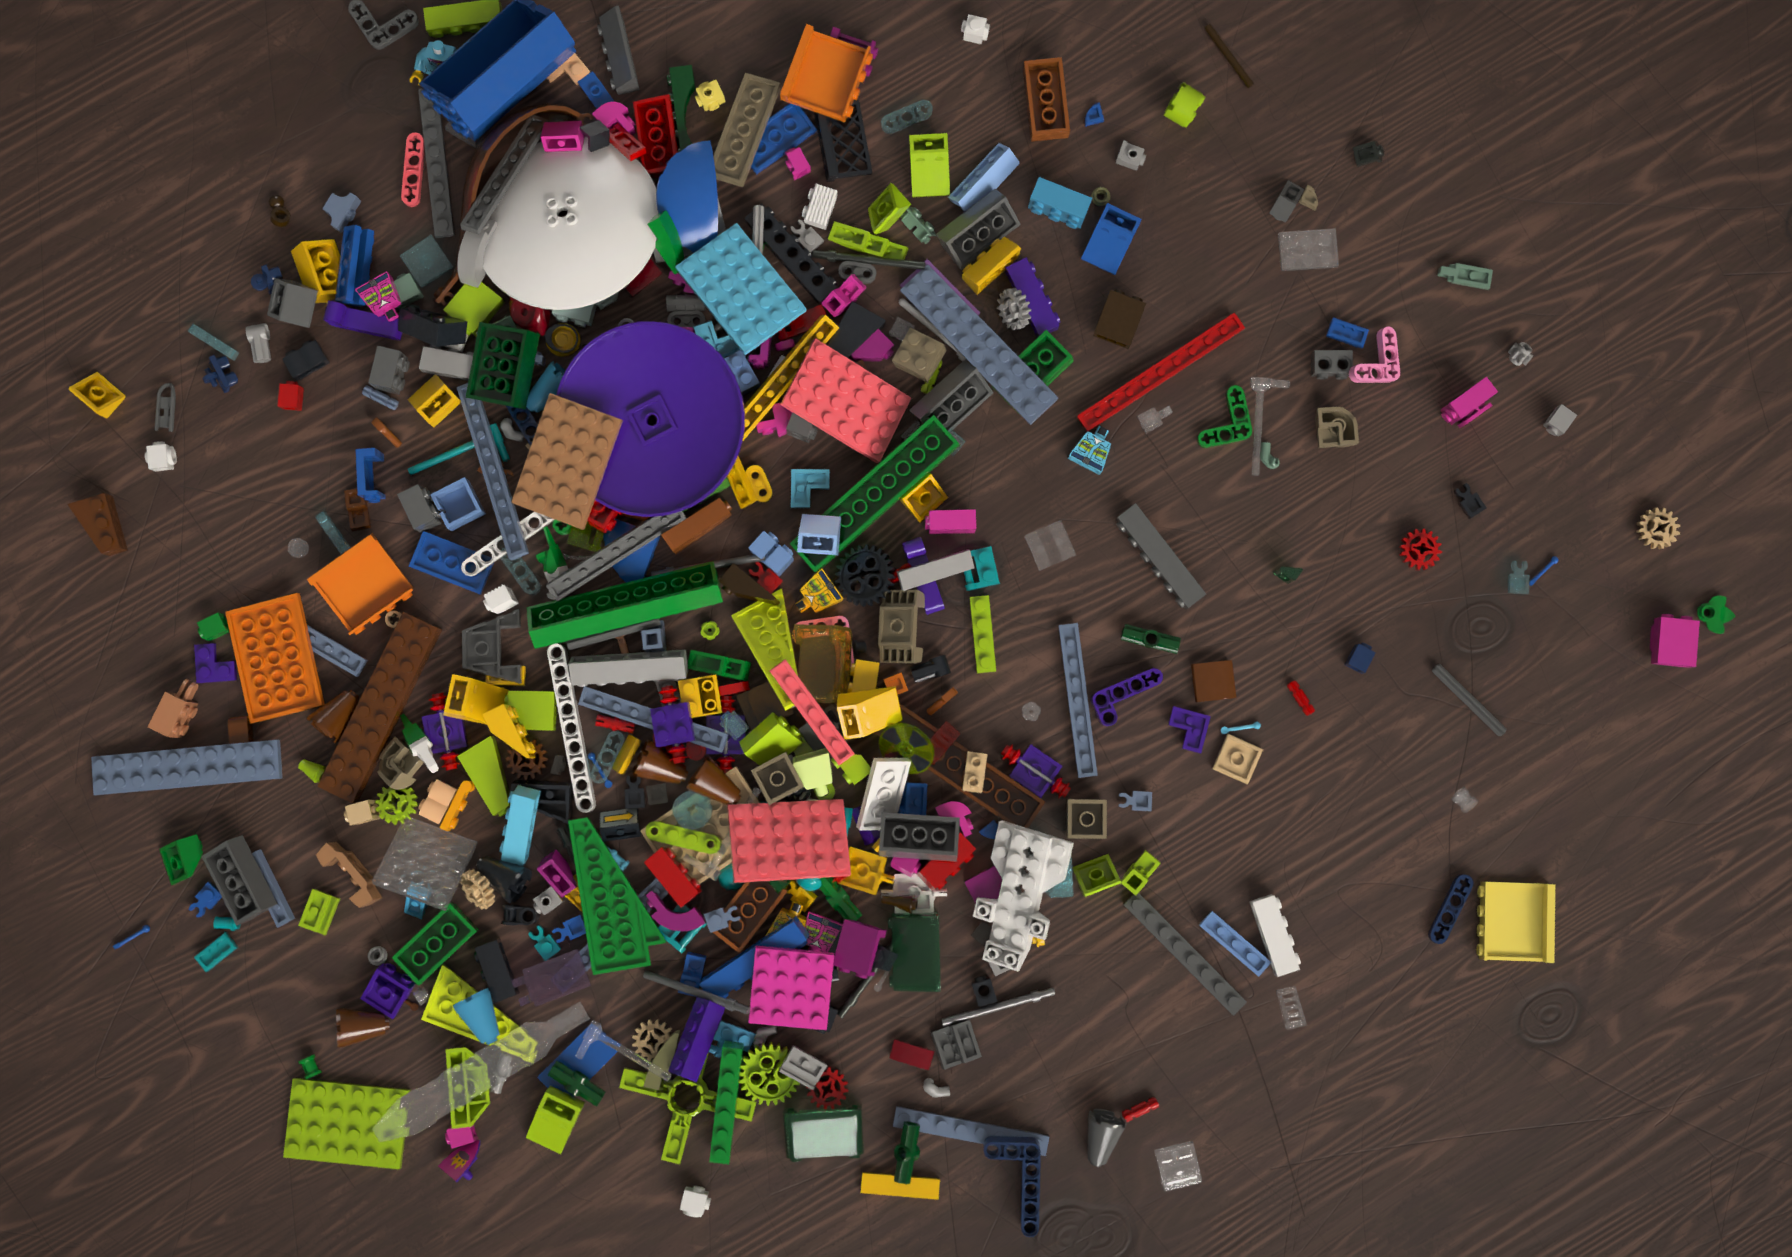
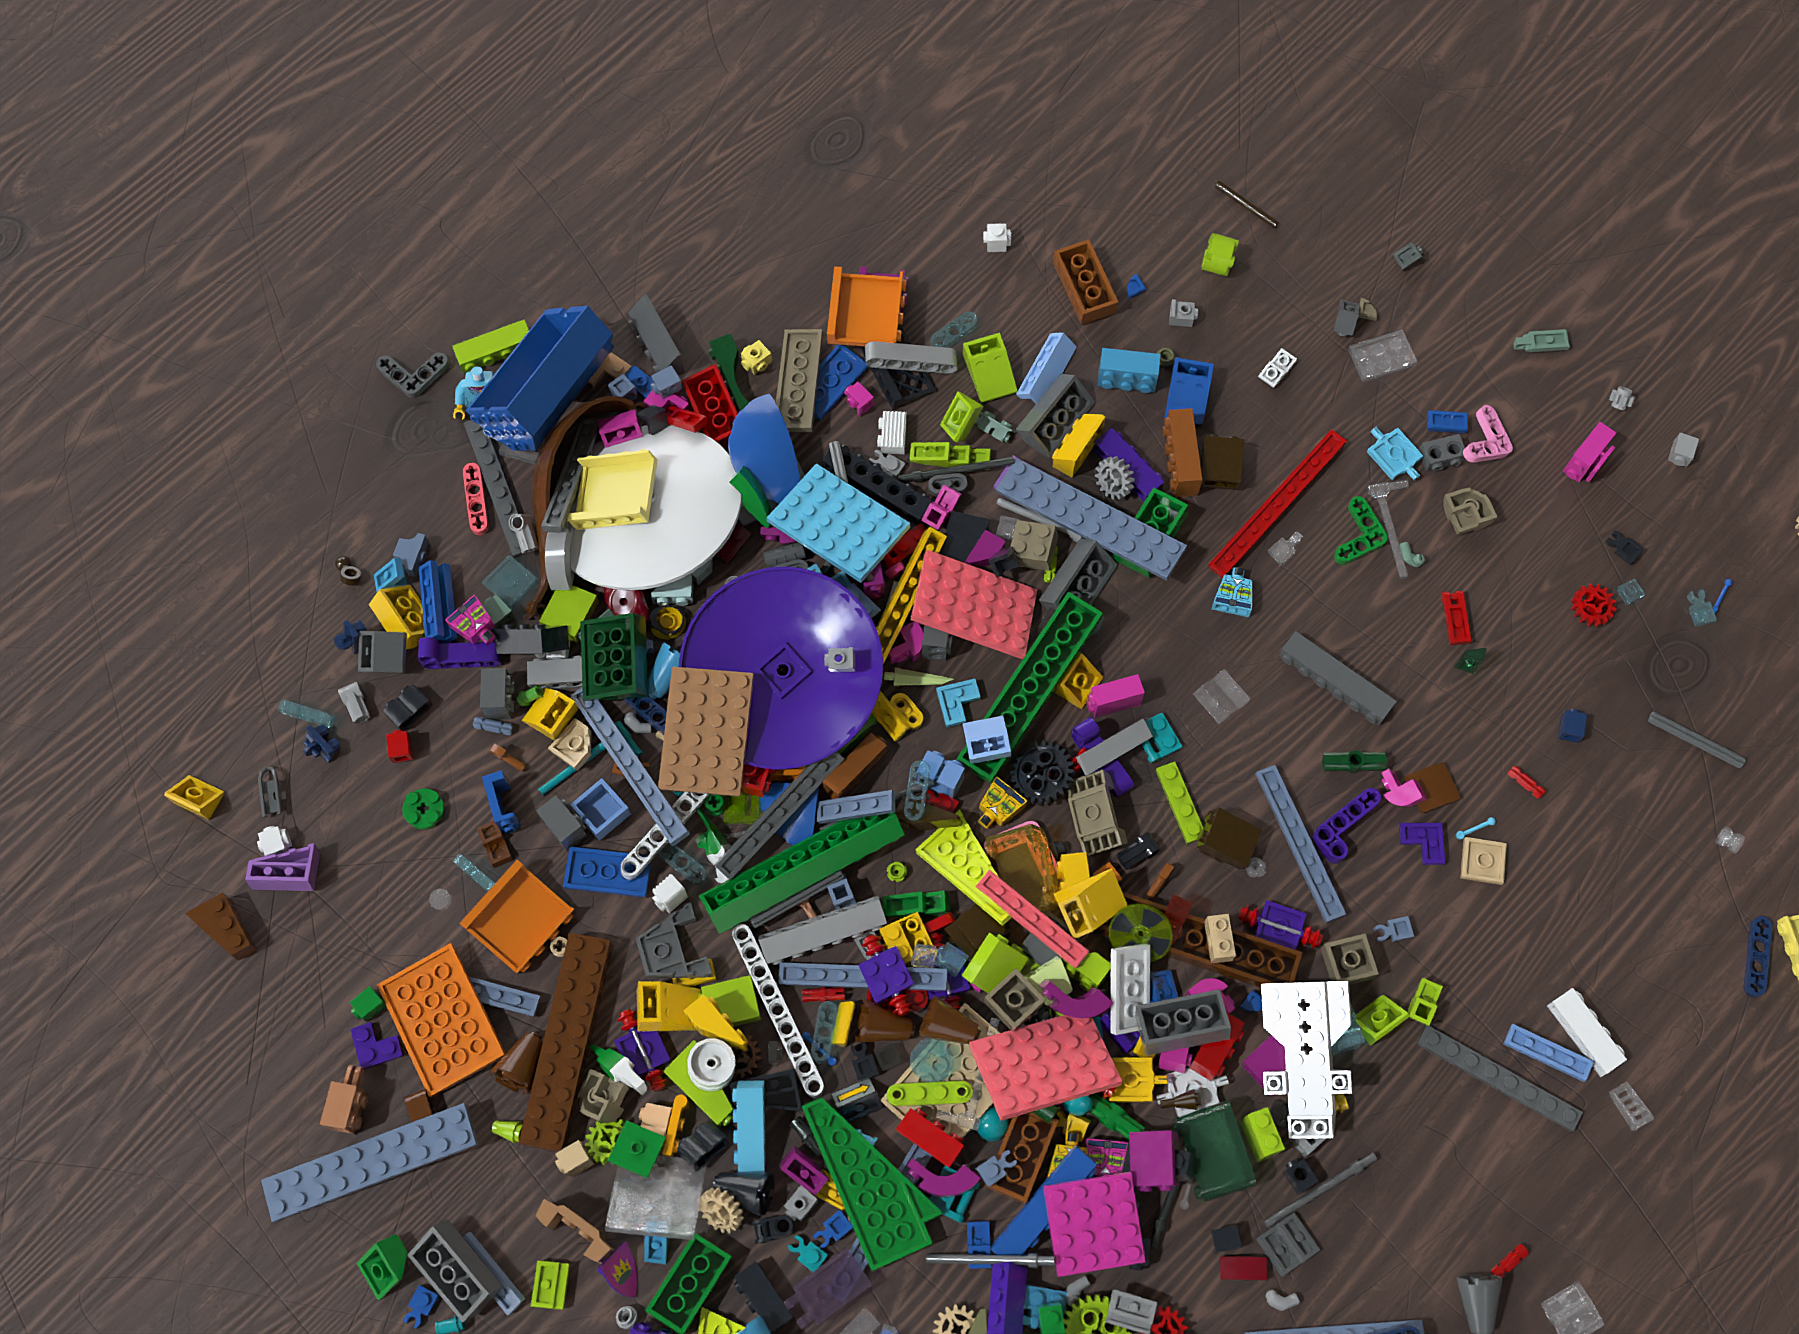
camera: 10 degrees left, 15 degrees down
(166, 487) = (286, 871): none -> medium lavender wedge
(307, 468) = (415, 800): none -> green plate
(317, 228) = (390, 575): none -> dark azure slope
(380, 917) = (621, 1271): none -> dark pink shield
(415, 379) = (526, 697): none -> bright green pin
(417, 819) = (637, 1149): none -> green plate
(448, 436) = (573, 744): none -> tan plate
(449, 212) = (523, 527): none -> light grey piece
(475, 829) = (702, 1145): none -> black brick
(509, 767) = (708, 1077): none -> white wheel
(539, 204) = (615, 490): none -> light yellow panel
(575, 96) = (623, 387): none -> sand blue brick
(616, 102) = (666, 382): none -> sand blue brick
(686, 565) = (856, 806): none -> sand blue plate
(709, 433) = (847, 663): none -> light grey brick
(709, 717) = (924, 956): none -> clear plate
(751, 562) = (919, 806): none -> clear light blue beam
(772, 452) = (908, 677): none -> yellowish green bar
(831, 799) = (1086, 1006): none -> magenta arch
(856, 135) = (910, 357): none -> light grey beam
(885, 365) = (1004, 561): none -> black panel
(903, 1027) = (1226, 1239): none -> black panel
(960, 950) = (1262, 1134): none -> lime brick
(1013, 680) = (1228, 838): none -> dark brown brick
(1086, 299) = (1182, 452): none -> dark orange brick
(1181, 681) = (1402, 795): none -> dark pink brick
(1204, 236) = (1277, 368): none -> white slope
(1286, 352) = (1394, 453): none -> medium azure plate
(1289, 527) = (1456, 618): none -> red plate
(1460, 545) = (1630, 591): none -> clear light blue tile

